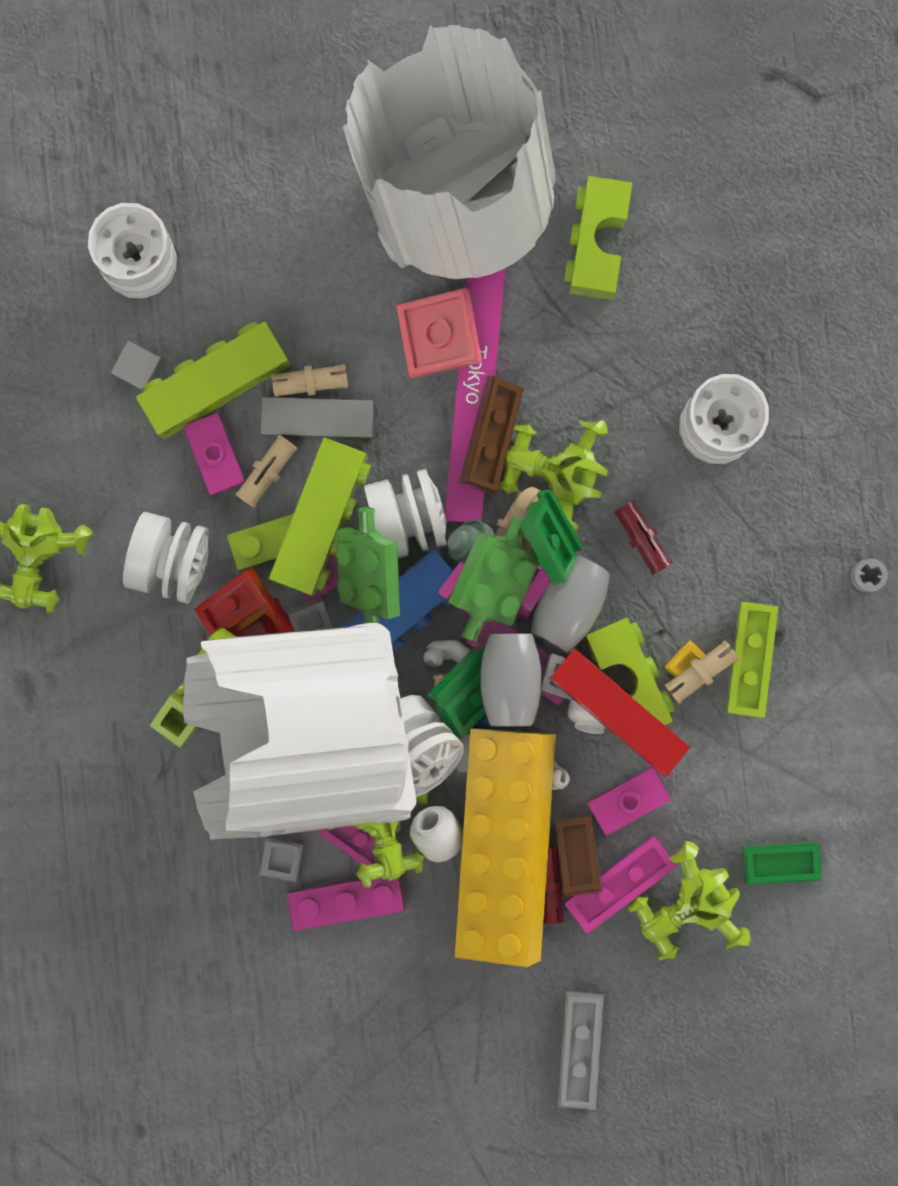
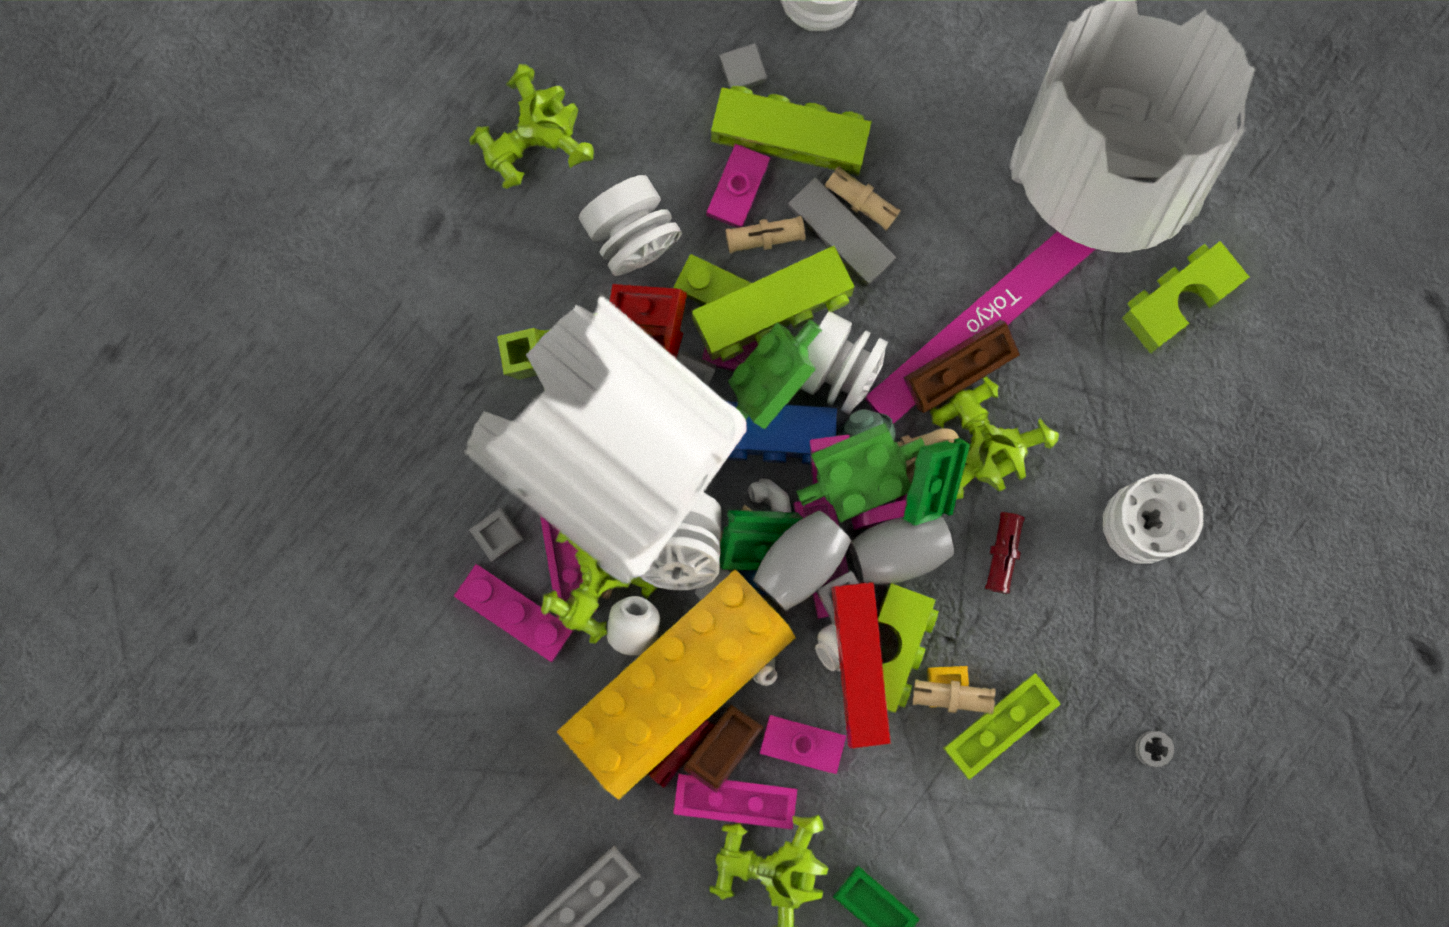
camera: 40 degrees right, 5 degrees down
(439, 333) = (994, 254): coral plate -> none

